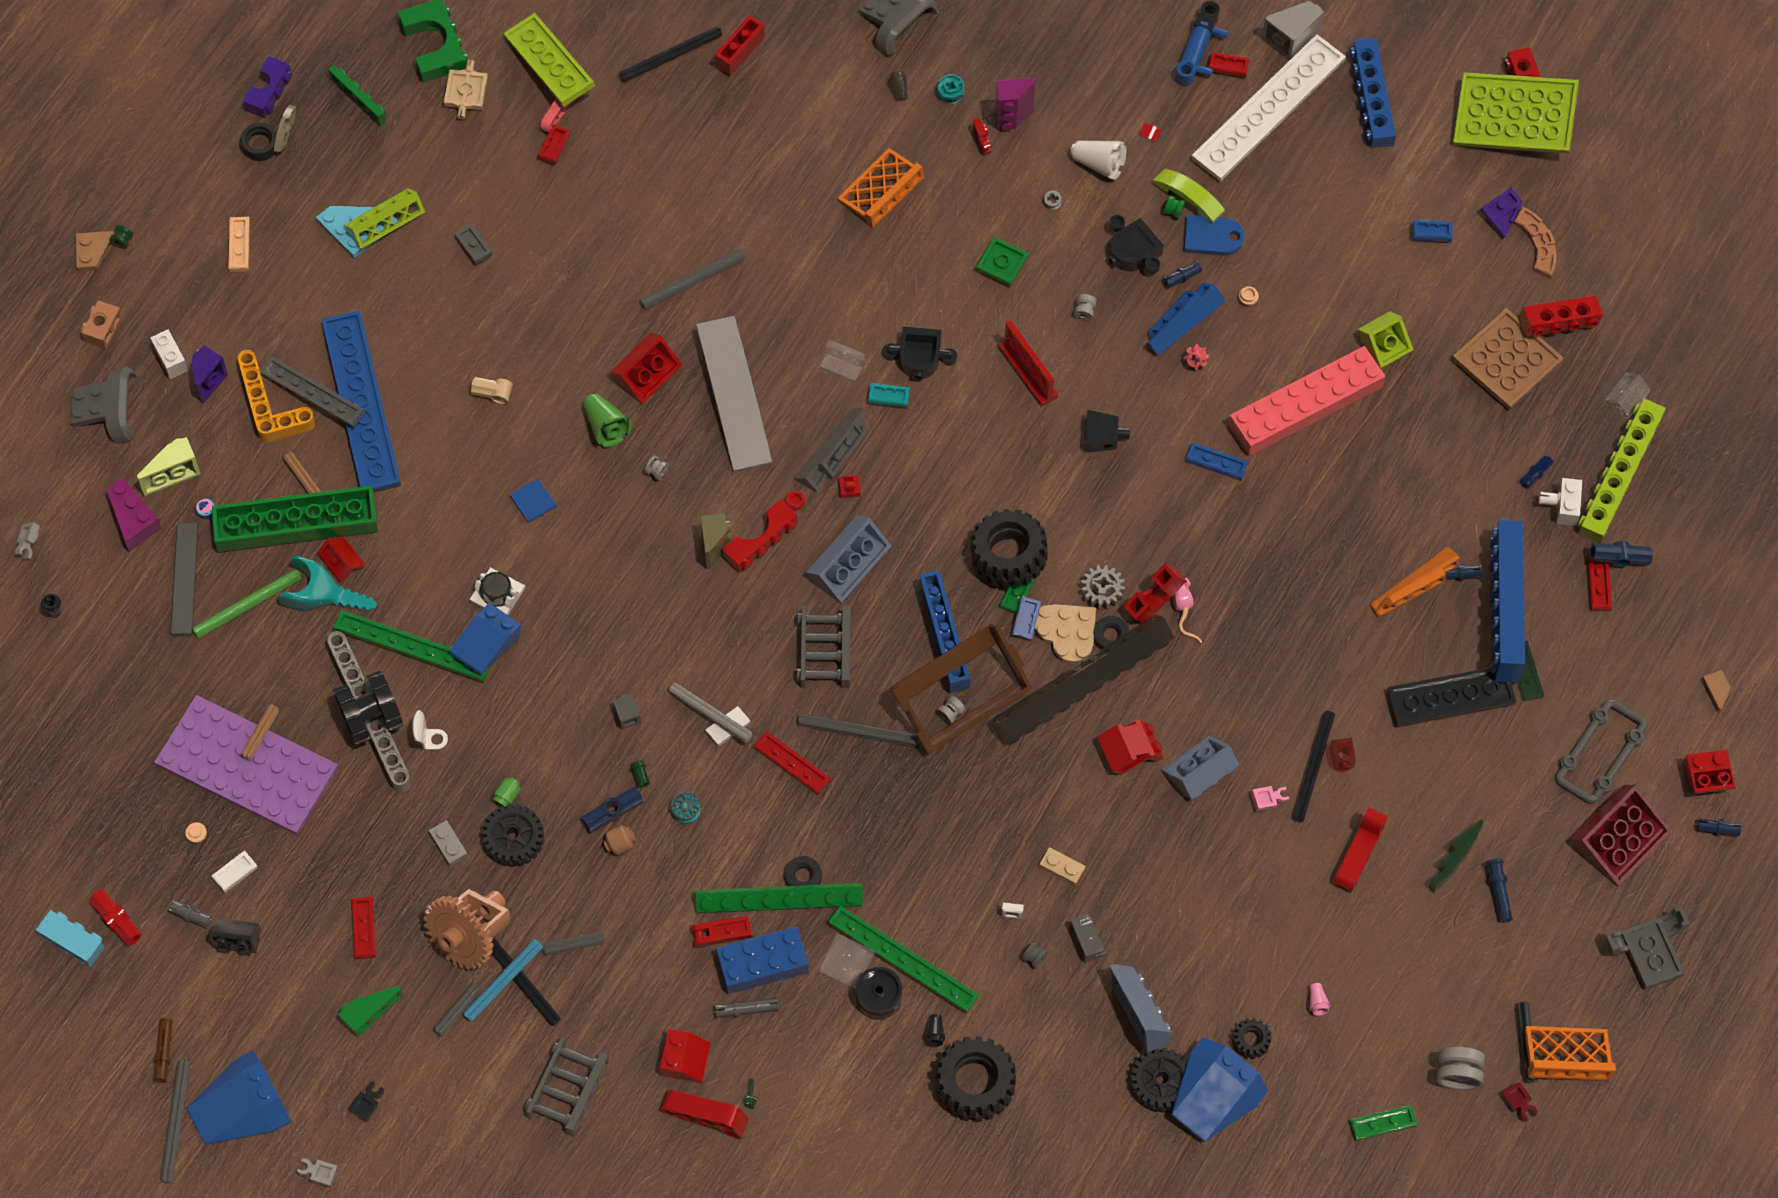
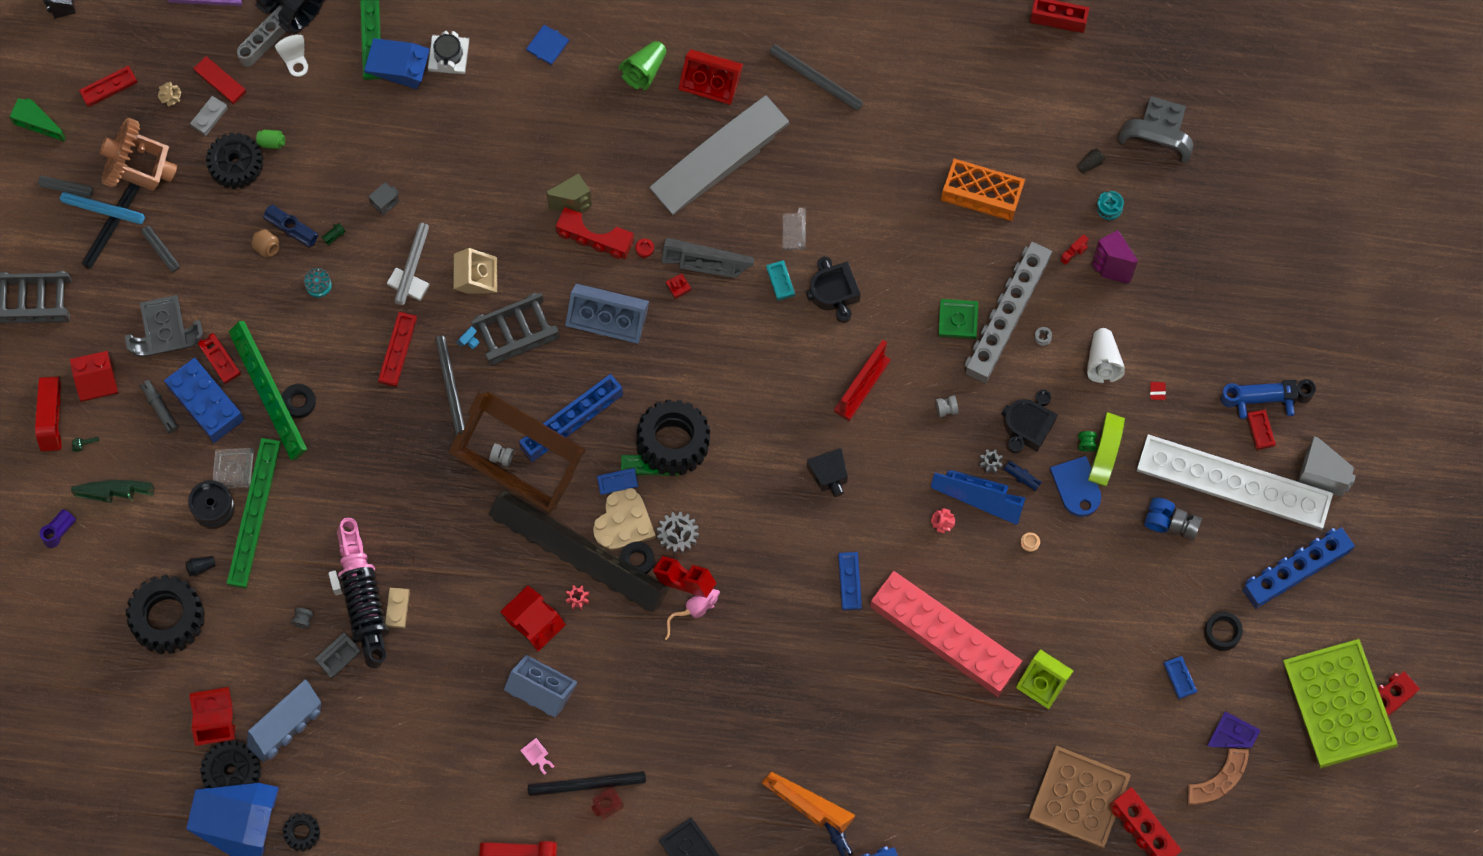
camera: 65 degrees right, 5 degrees up
(407, 868) = (169, 94): none -> tan gear
(413, 817) = (219, 80): none -> red tile
(656, 468) = (620, 125): light grey wheel -> none
(666, 969) = (163, 329): none -> dark grey piece
(747, 660) = (475, 272): none -> tan slope
(813, 692) = (467, 338): none -> dark azure tile
(815, 1087) = (106, 490): none -> clear green slope
(832, 1151) = (58, 527): none -> dark purple piece
(977, 167) = (1040, 257): none -> light grey brick
(1025, 887) = (361, 595): none -> black piece
(1100, 1075) = (212, 716): none -> red piece
(1127, 705) = (577, 603): none -> coral gear
(1156, 294) = (991, 467): none -> light grey gear
(1273, 179) = (1159, 515): none -> blue wheel
(1292, 162) = (1185, 524): none -> flat silver wheel
(1409, 165) = (1213, 642): none -> black tyre

